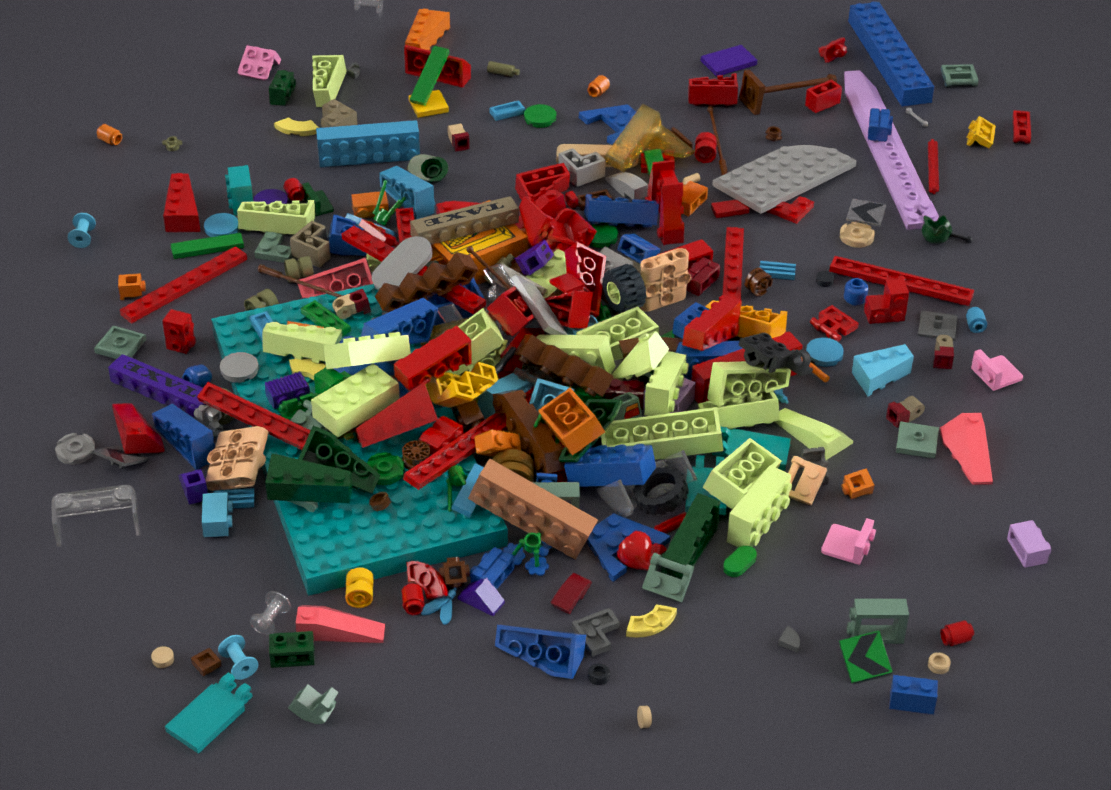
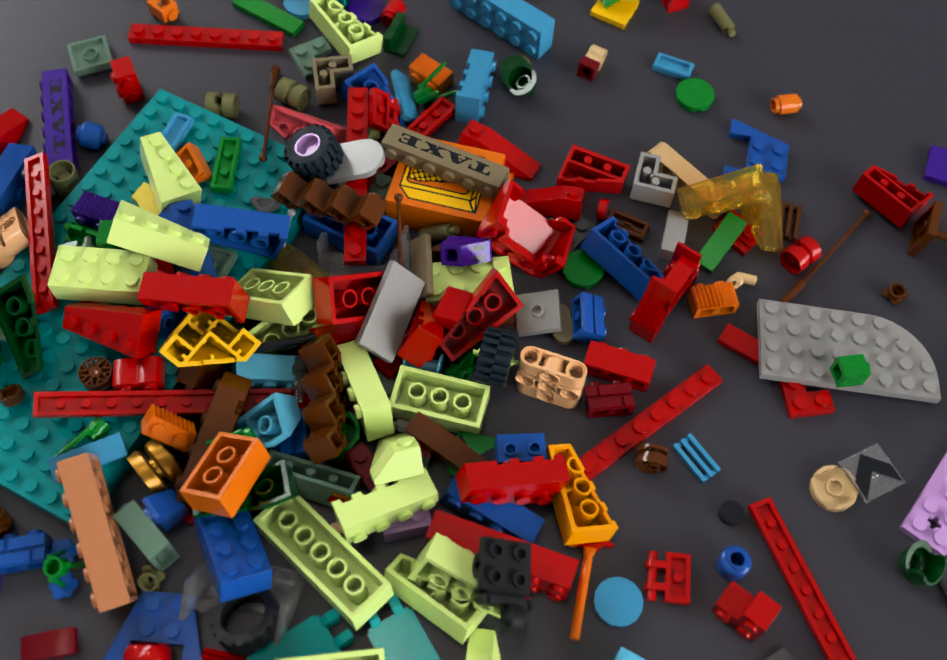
camera: 45 degrees right, 20 degrees up
(239, 367) = (105, 155): light grey tile -> none
(351, 304) = (258, 168): leg -> none
(382, 265) = (313, 152): none -> black wheel
(388, 466) = (63, 362): green tile -> none
(802, 172) = (850, 370): none -> green brick

